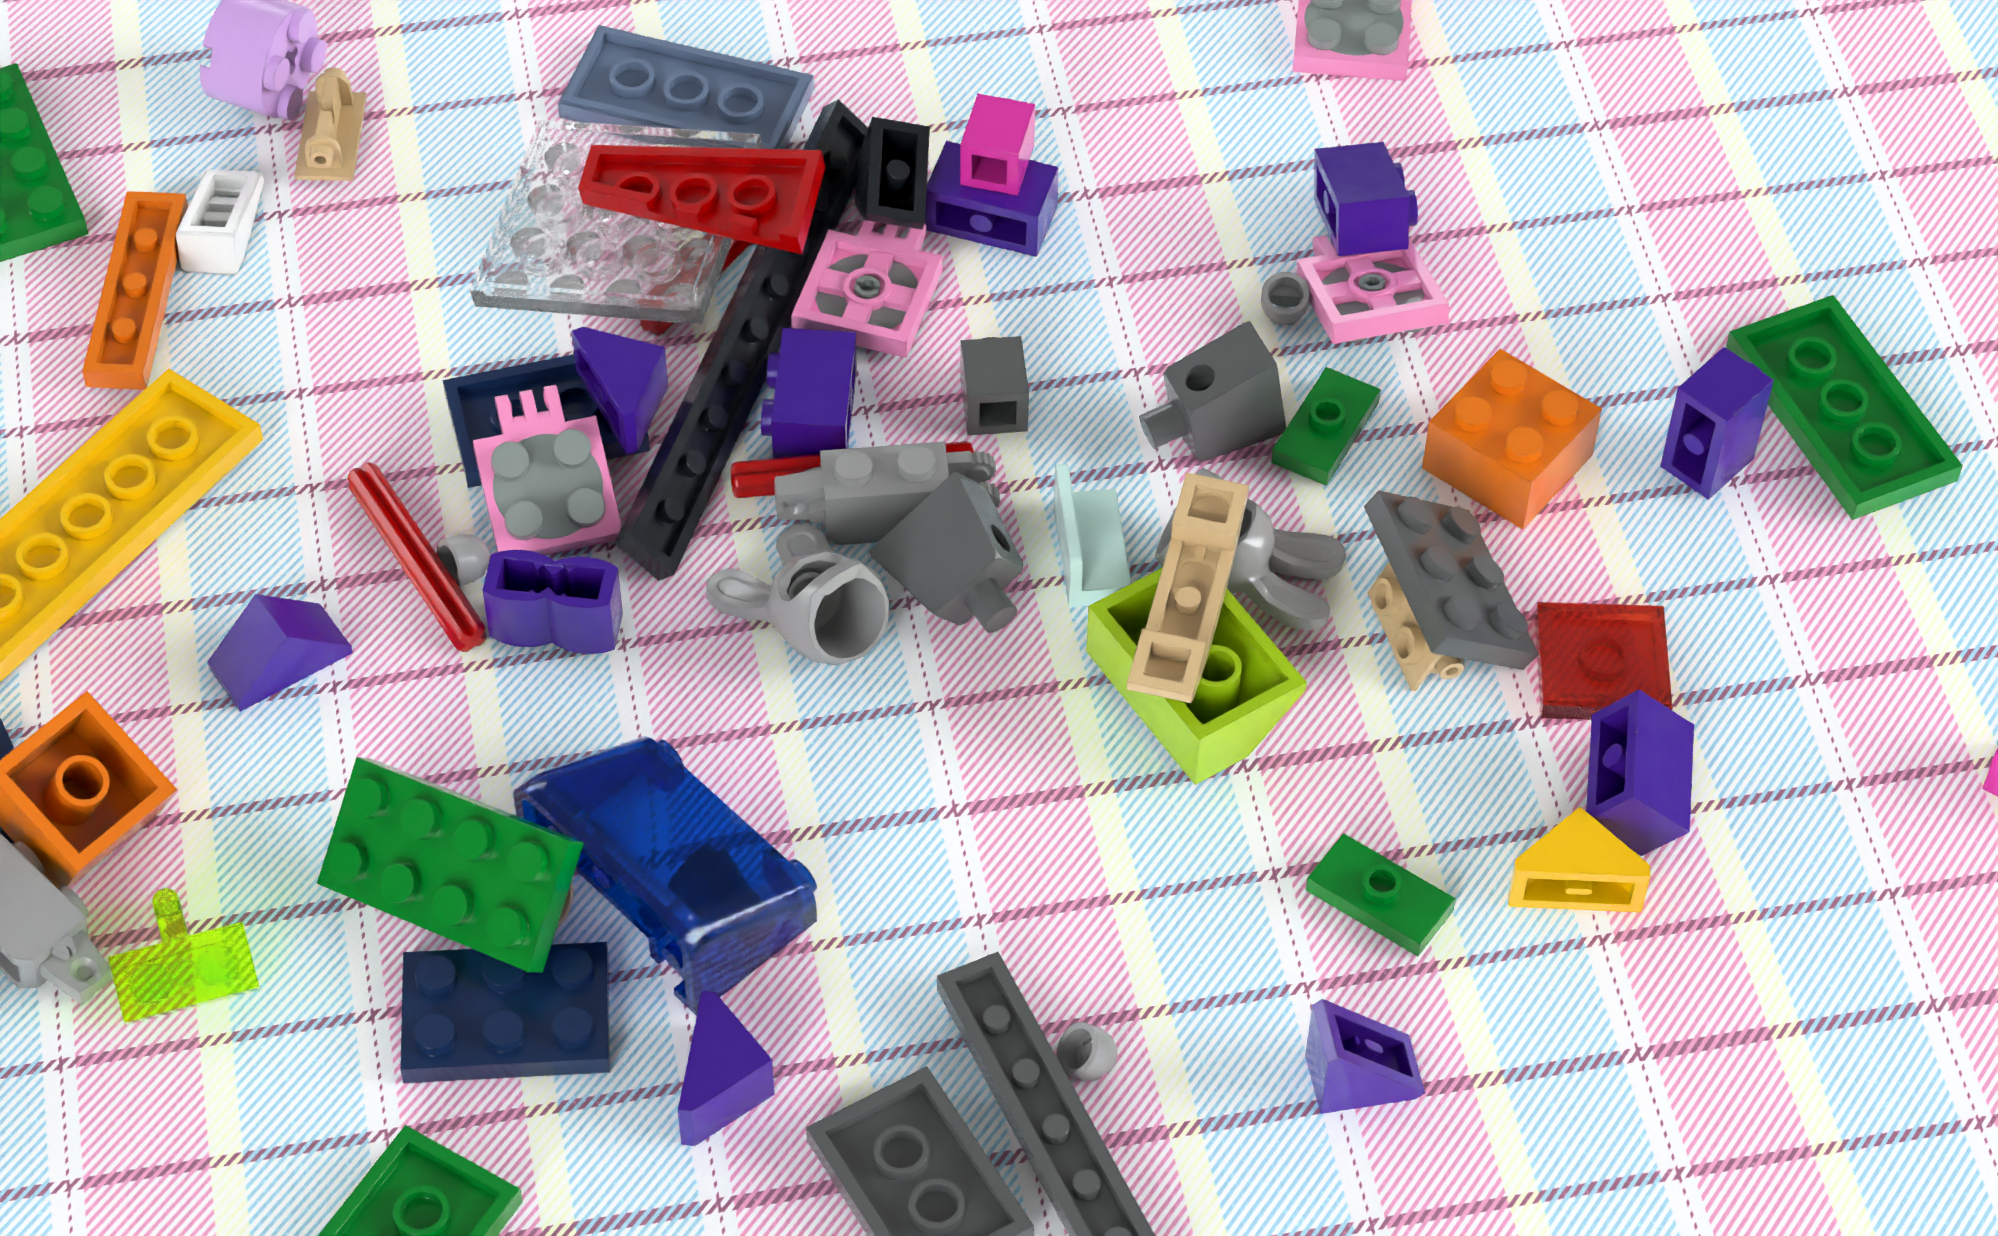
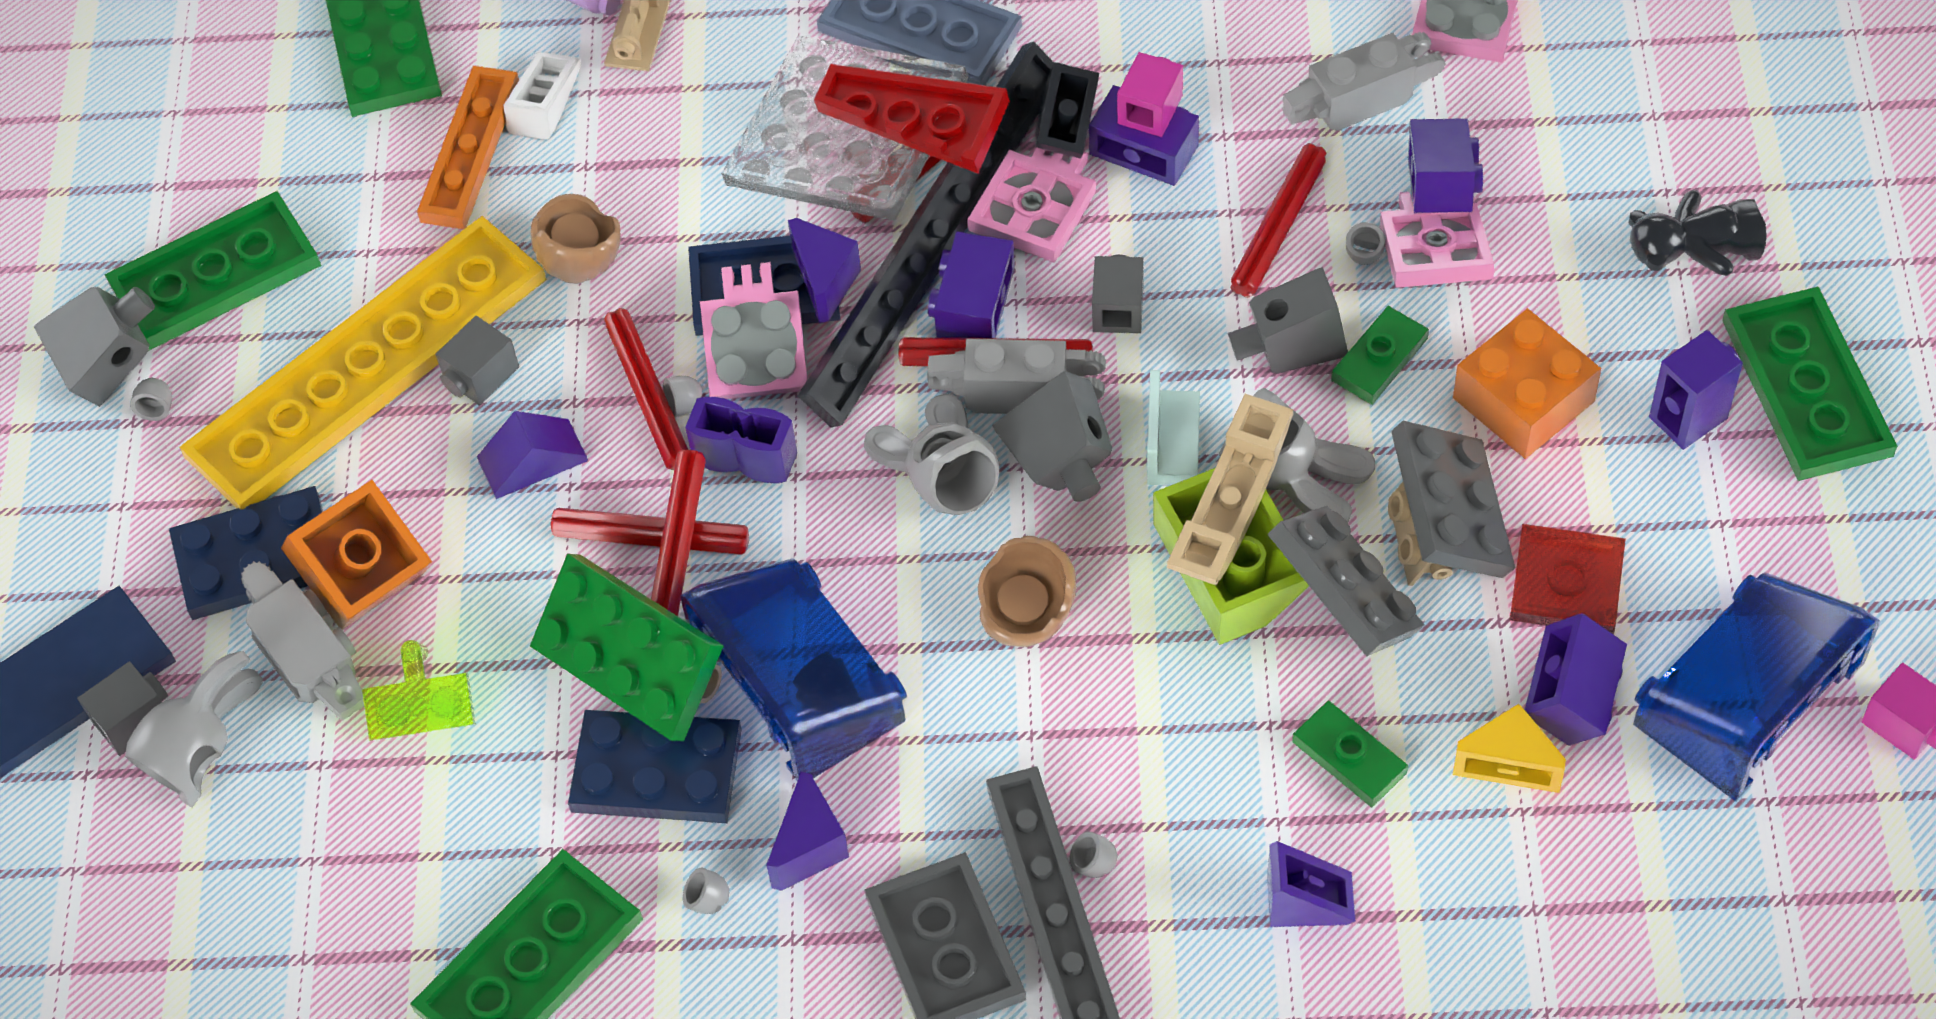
camera: 15 degrees right, 5 degrees up
(191, 543) = (477, 361): none -> dark grey brick
(295, 384) = (574, 238): none -> medium nougat piece
(449, 727) = (645, 530): none -> red axle
(491, 711) = (678, 529): none -> red axle
(599, 1156) = (705, 891): none -> light grey hinge
(948, 743) = (1026, 591): none -> medium nougat piece
(1172, 283) = (1278, 220): none -> red axle
(1247, 112) = (1363, 81): none -> light grey hinge
(1345, 683) = (1347, 579): none -> dark grey plate
(1690, 249) = (1703, 235): none -> black piece
(1850, 748) = (1753, 677): none -> clear blue windscreen

